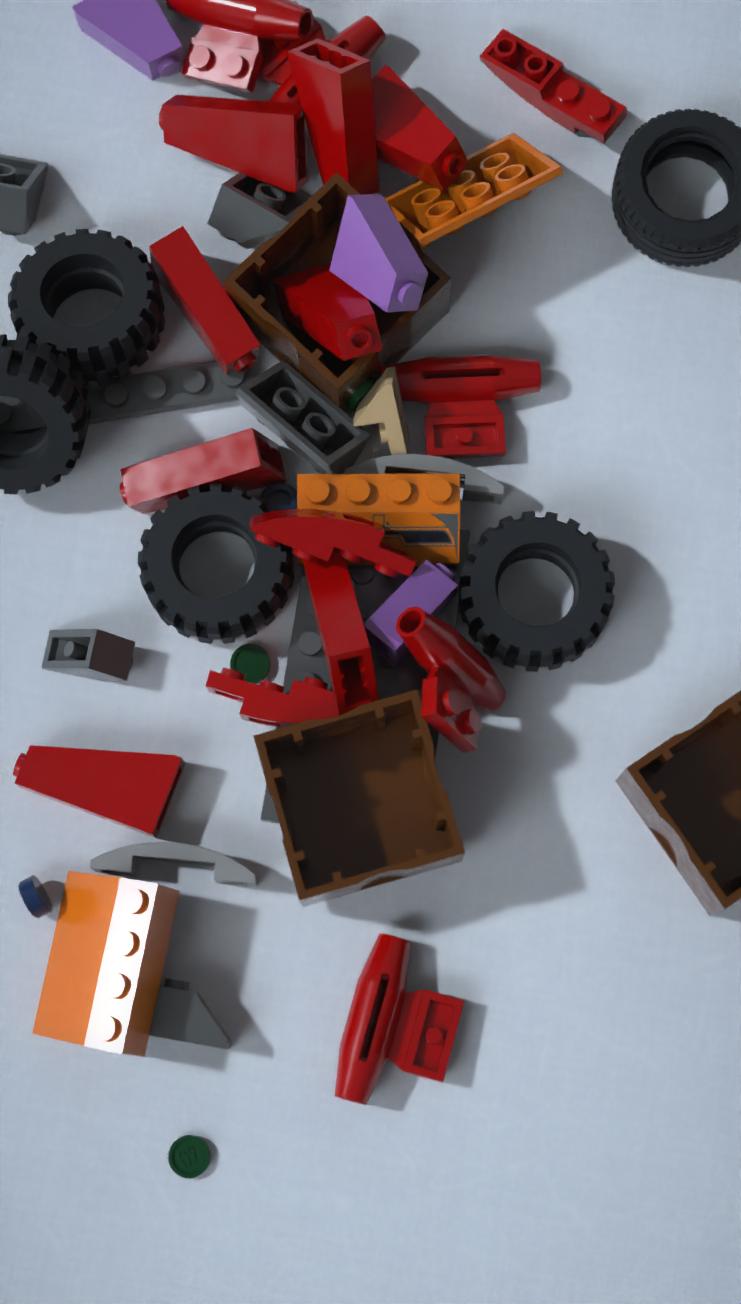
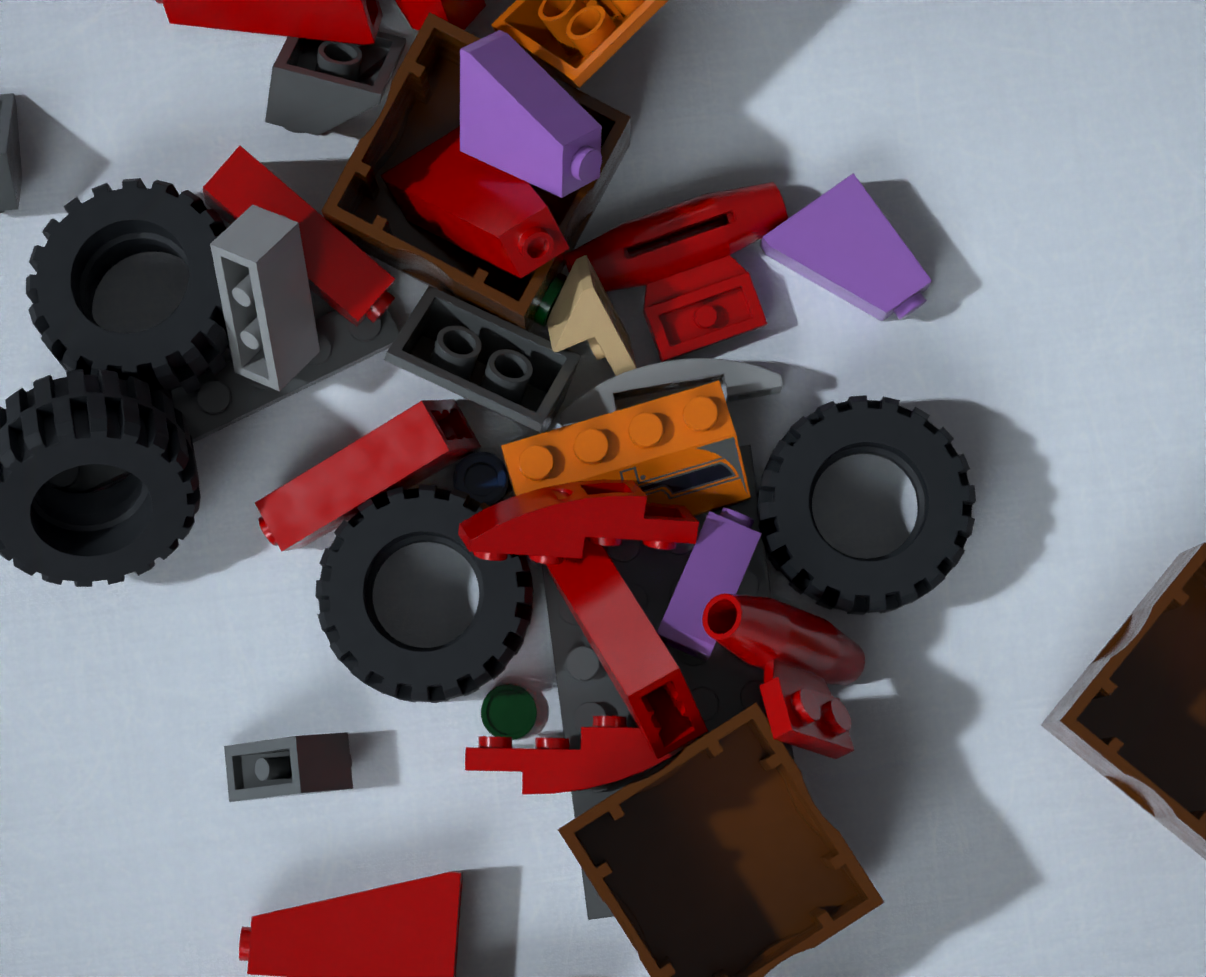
camera: 20 degrees left, 5 degrees up
(168, 328) = (265, 297): none -> light grey brick
(576, 421) = (851, 252): none -> medium lavender slope

